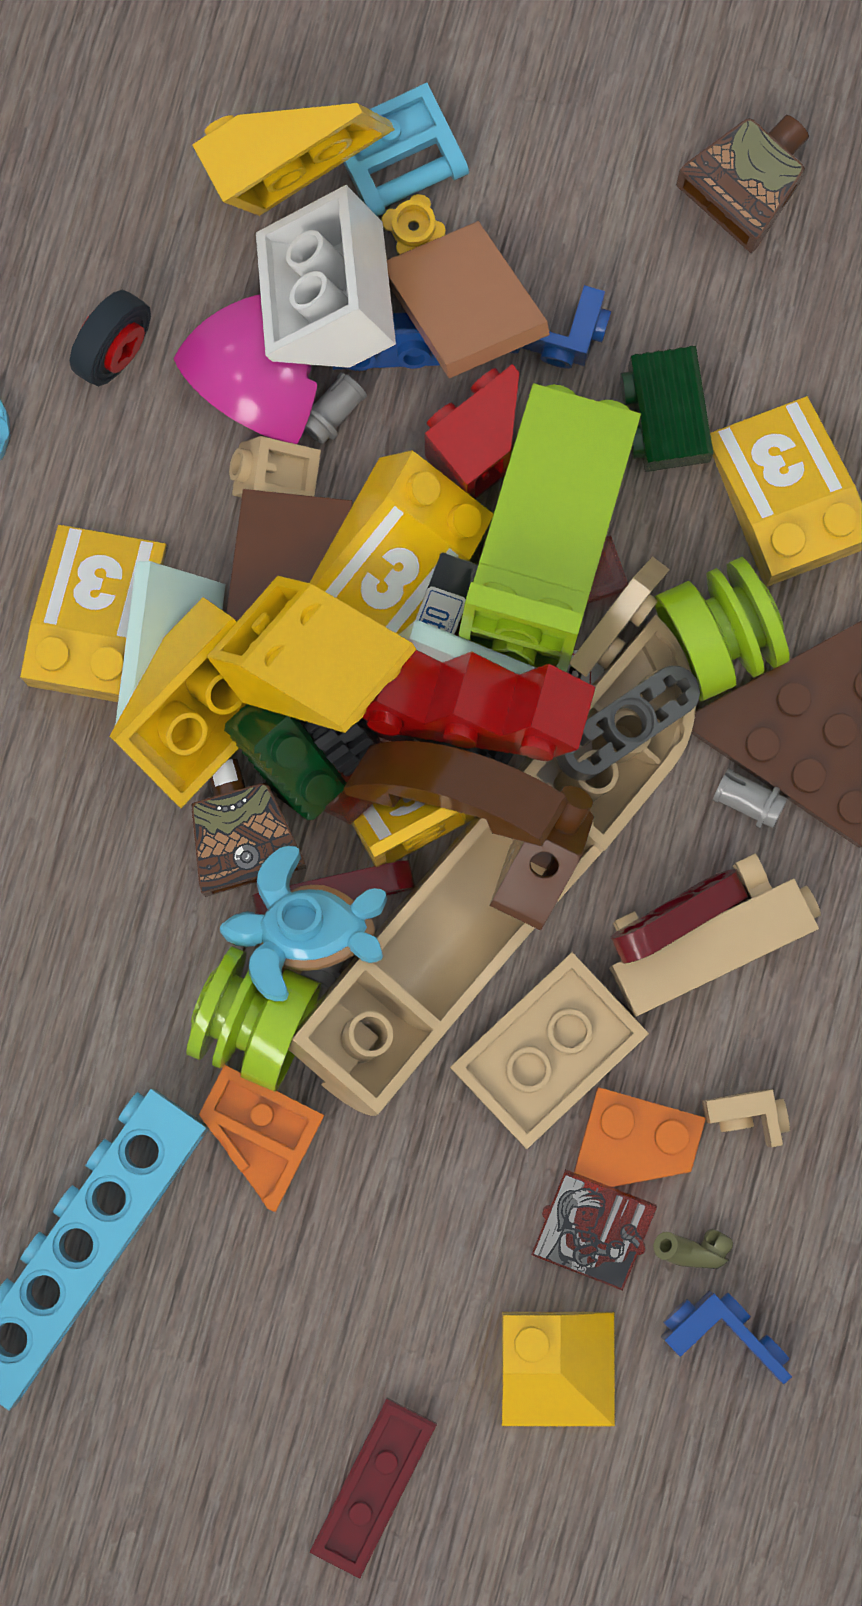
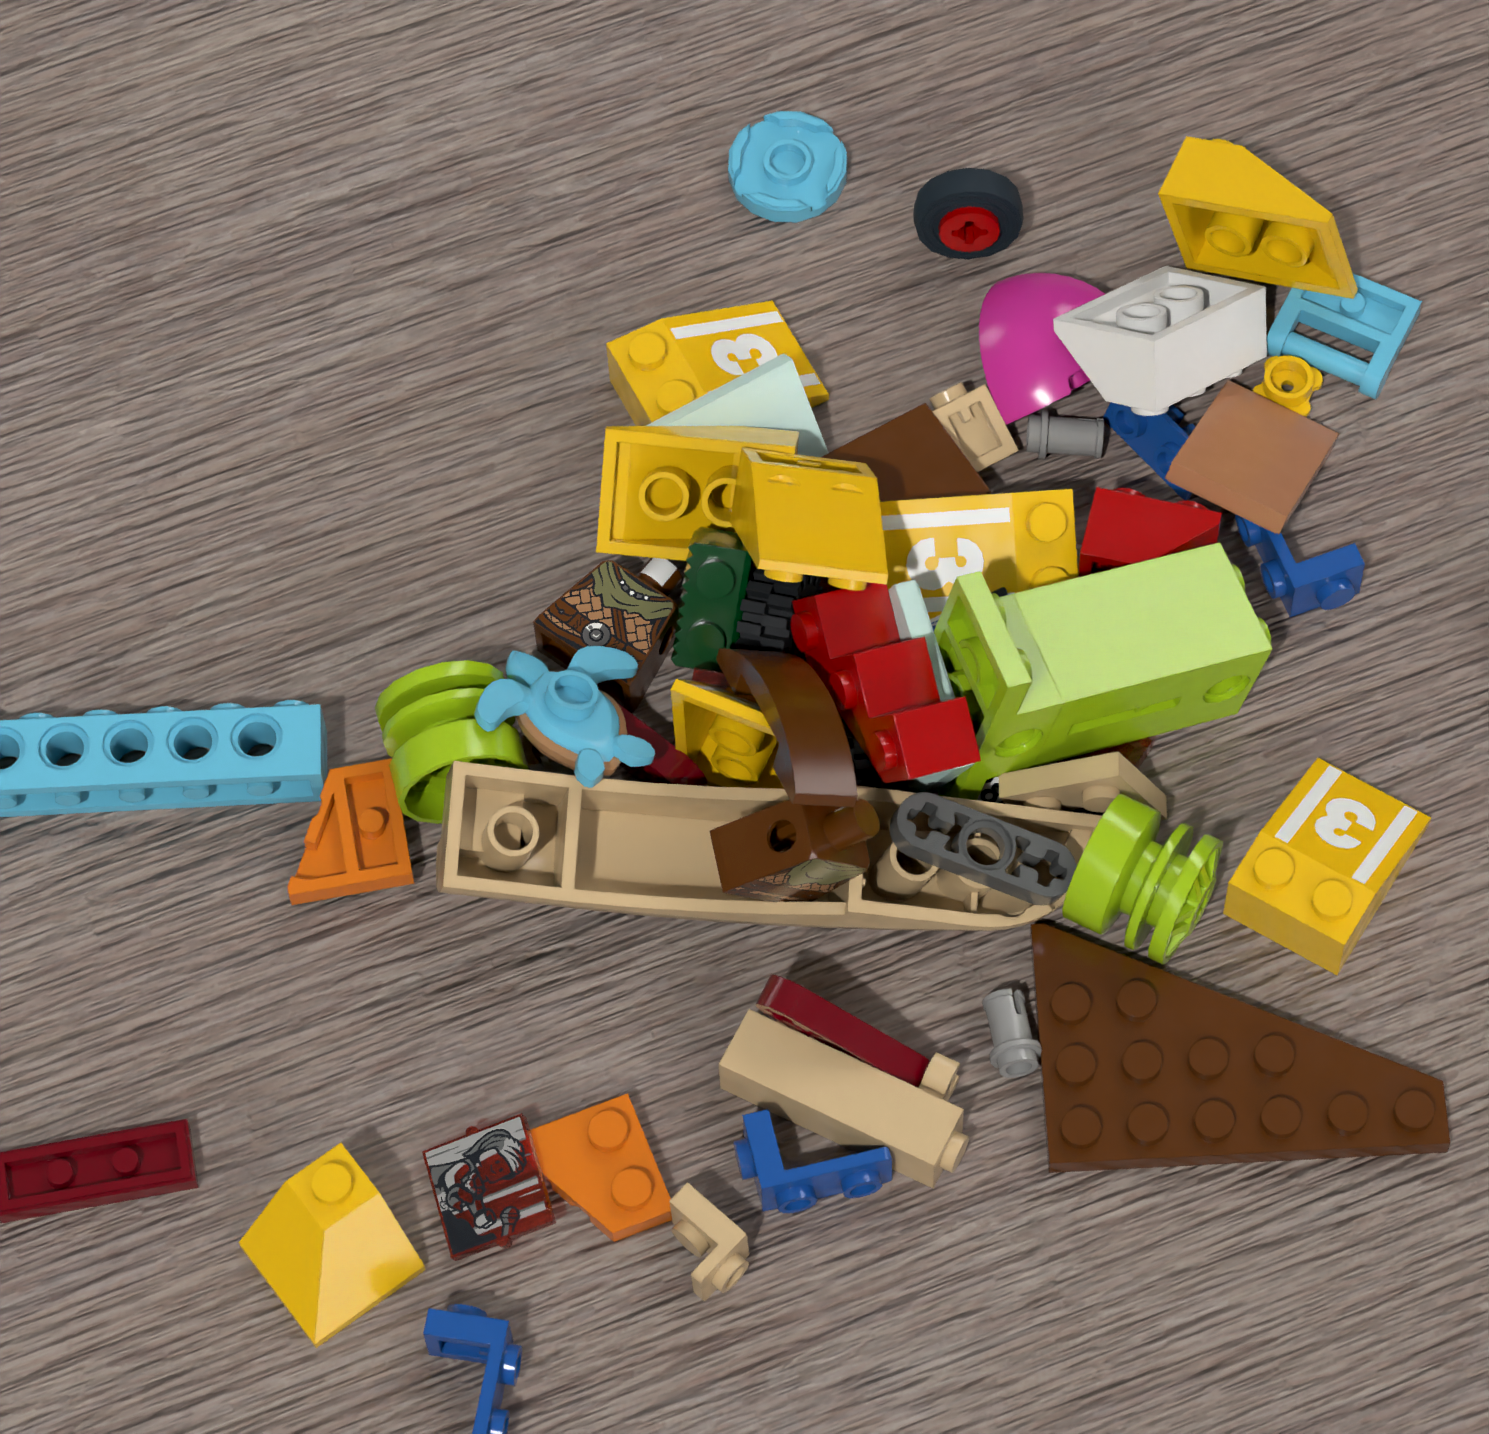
camera: 55 degrees right, 20 degrees down
(549, 1050) = (627, 1026): tan plate -> none
(672, 409) = (1309, 702): dark green brick -> none
(688, 1253) = (533, 1289): olive arm -> none
(715, 1034) = (802, 1186): none -> blue bracket

